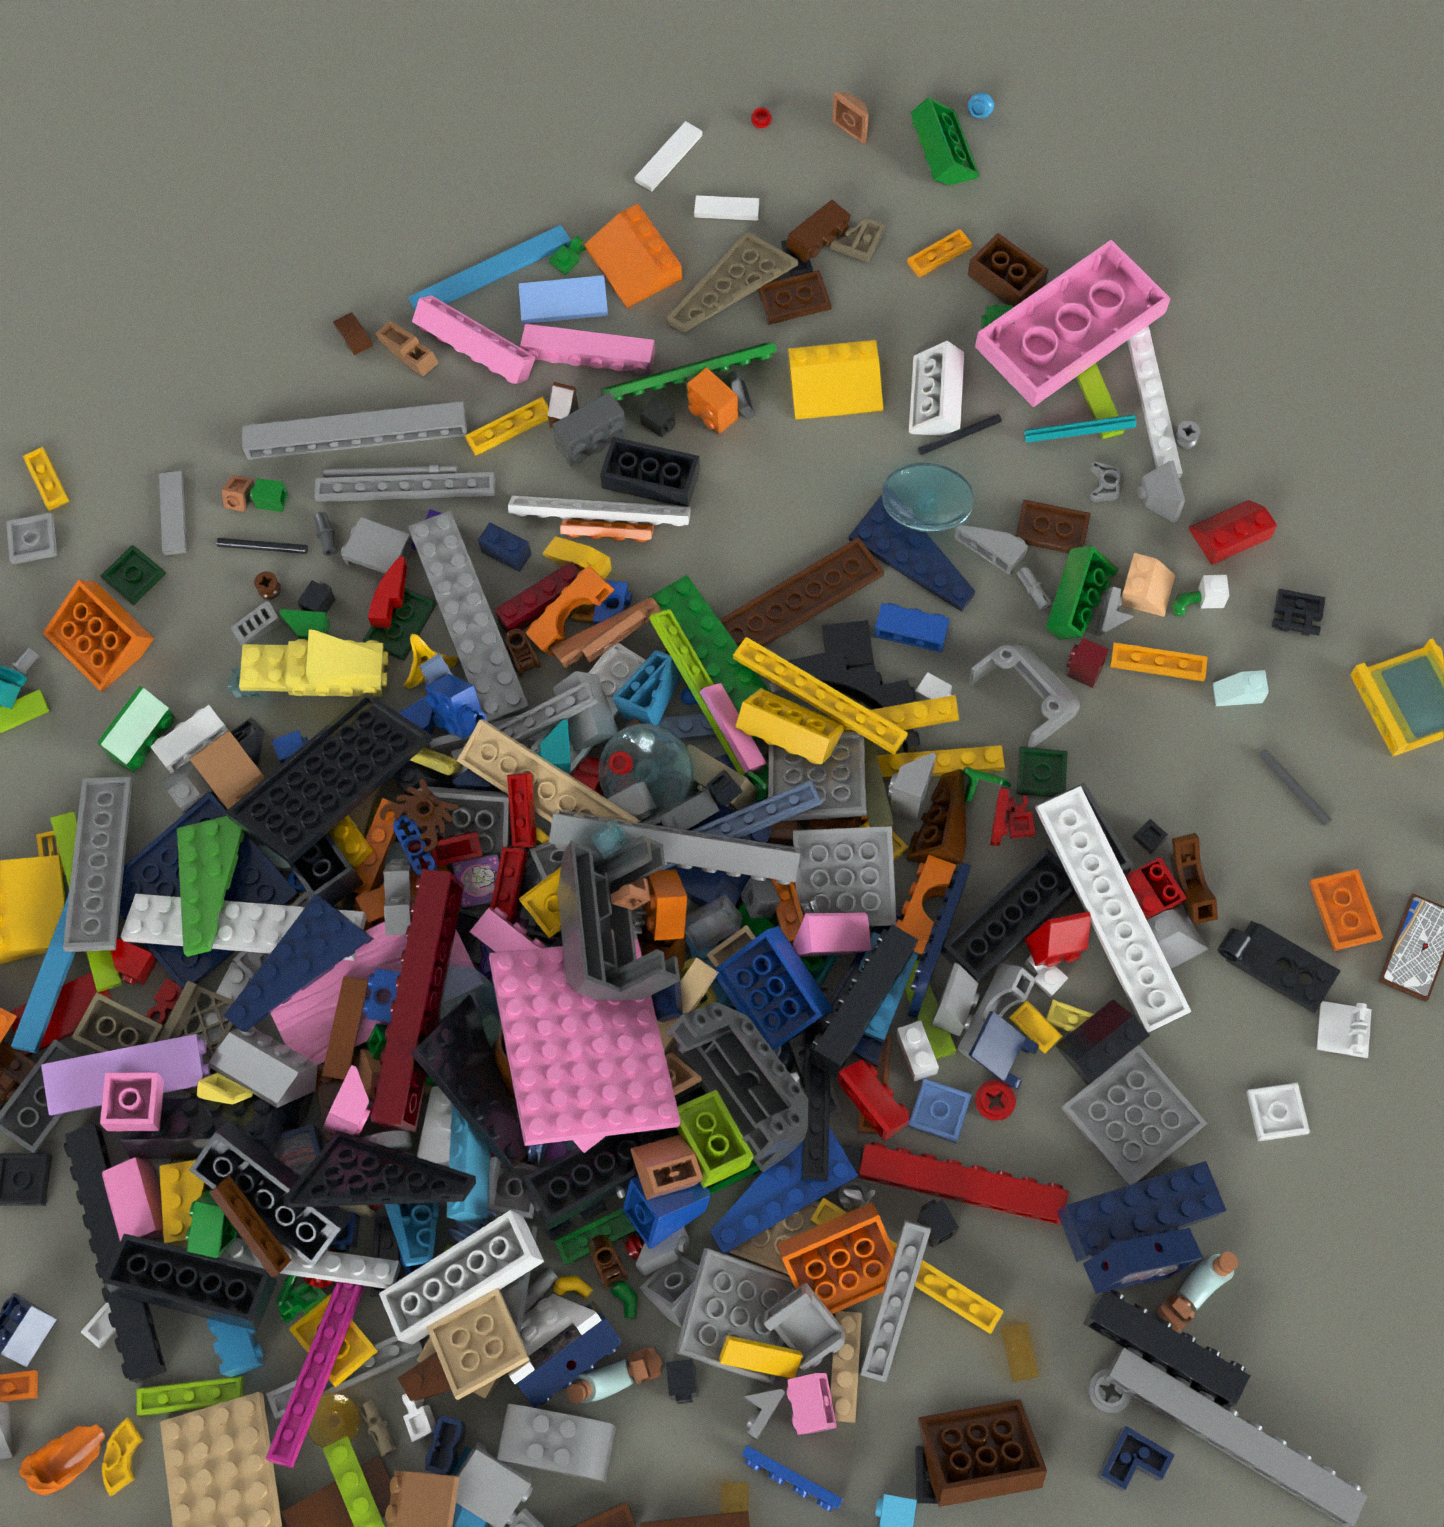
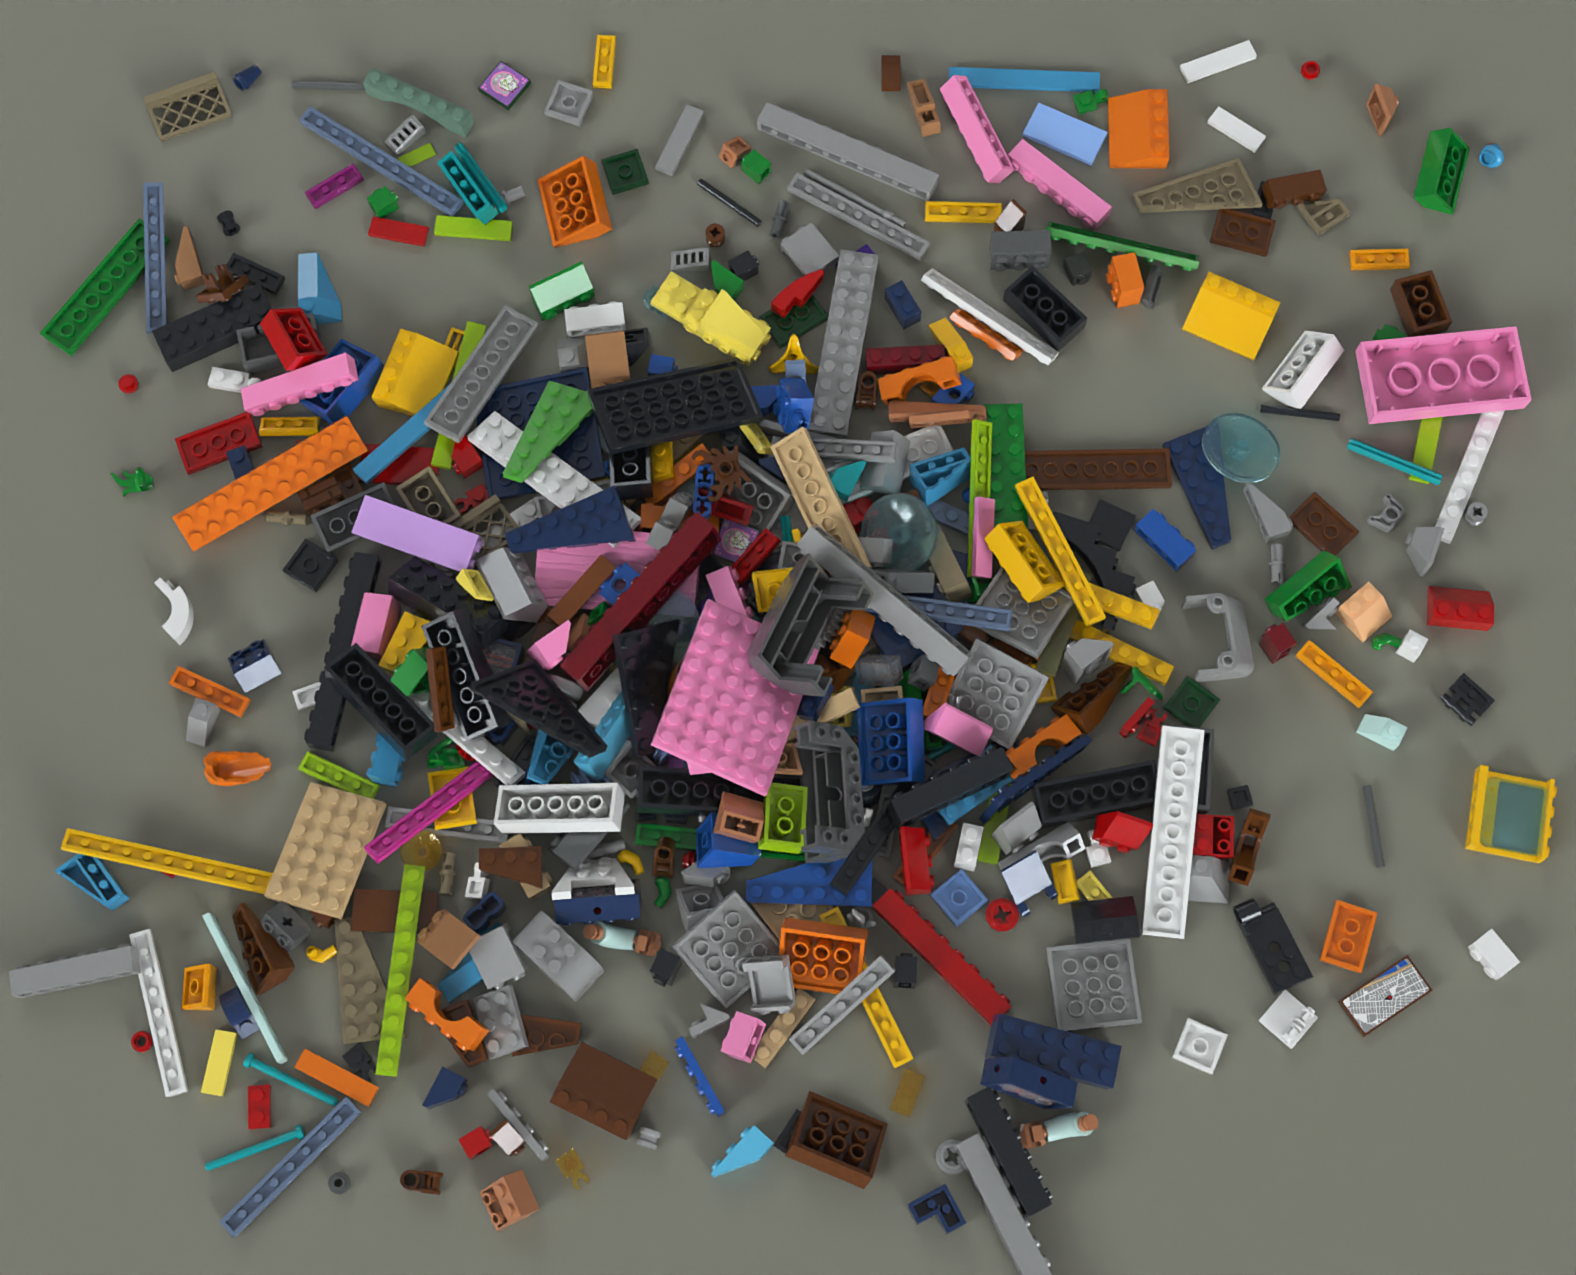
camera: 30 degrees right, 5 degrees up
(118, 1456) = (271, 788): yellow tile -> none
(132, 1101) = (410, 556): bright pink brick -> none
(477, 1343) = (544, 858): tan plate -> none
(522, 810) = (794, 509): red tile -> none
(609, 838) = (839, 566): clear light blue brick -> none
(620, 763) = (884, 516): red plate -> none
(632, 895) = (830, 616): nougat bracket -> none
(724, 788) = (946, 578): black slope -> none
(760, 1357) = (727, 985): yellow tile -> none

